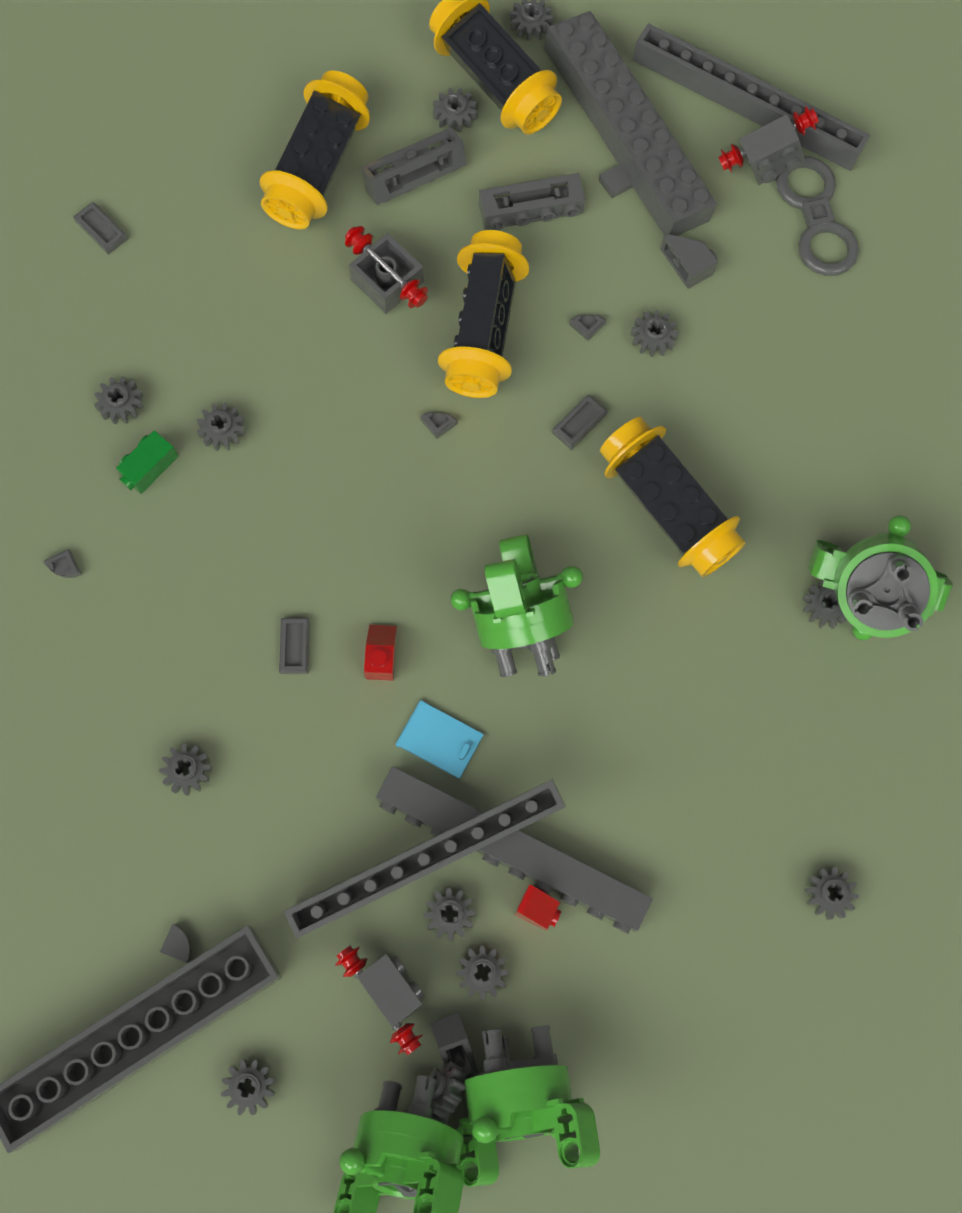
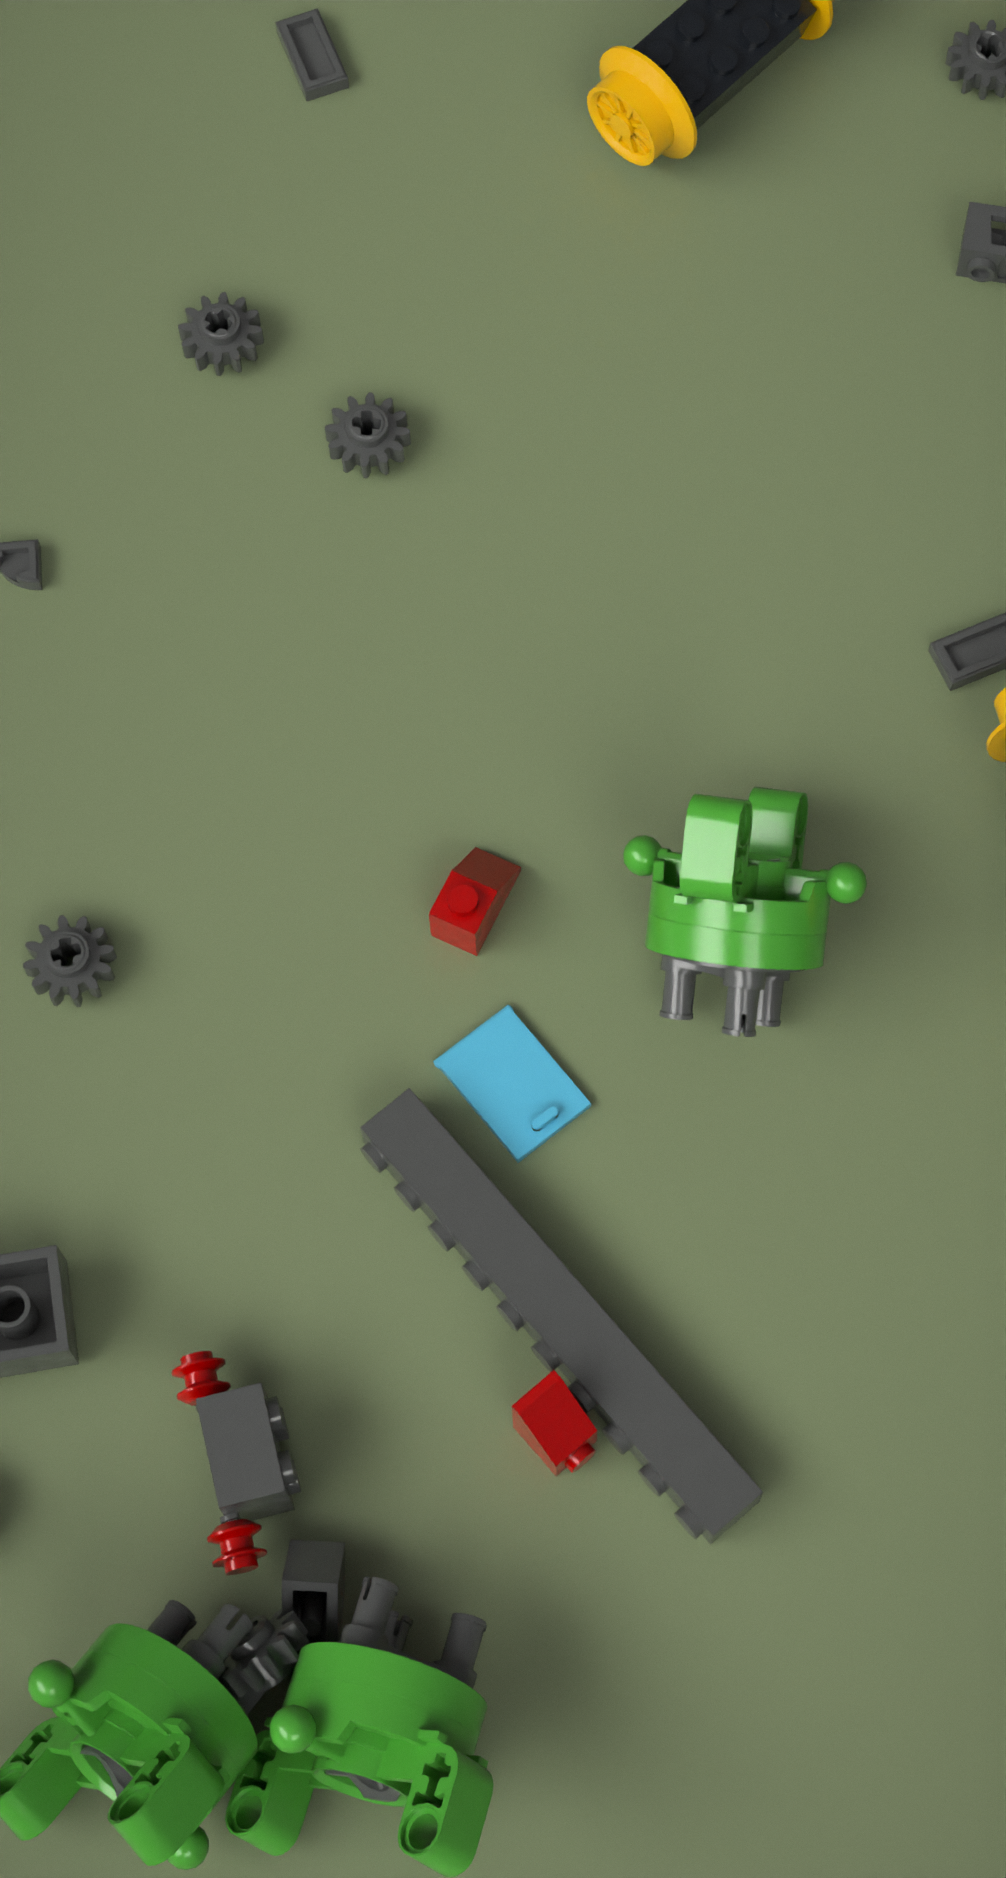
camera: 30 degrees right, 5 degrees down
(146, 462) = (222, 448): green brick -> none
(294, 646) = (335, 834): dark grey tile -> none
(385, 270) = (751, 278): dark grey brick -> none
(414, 166) = (876, 126): dark grey brick -> none
(424, 858) = (400, 1255): dark grey brick -> none
(438, 422) = (737, 562): dark grey tile -> none
(457, 906) = (392, 1357): dark grey gear -> none
(477, 360) = (847, 470): brick -> none
(493, 975) = (397, 1485): dark grey gear -> none

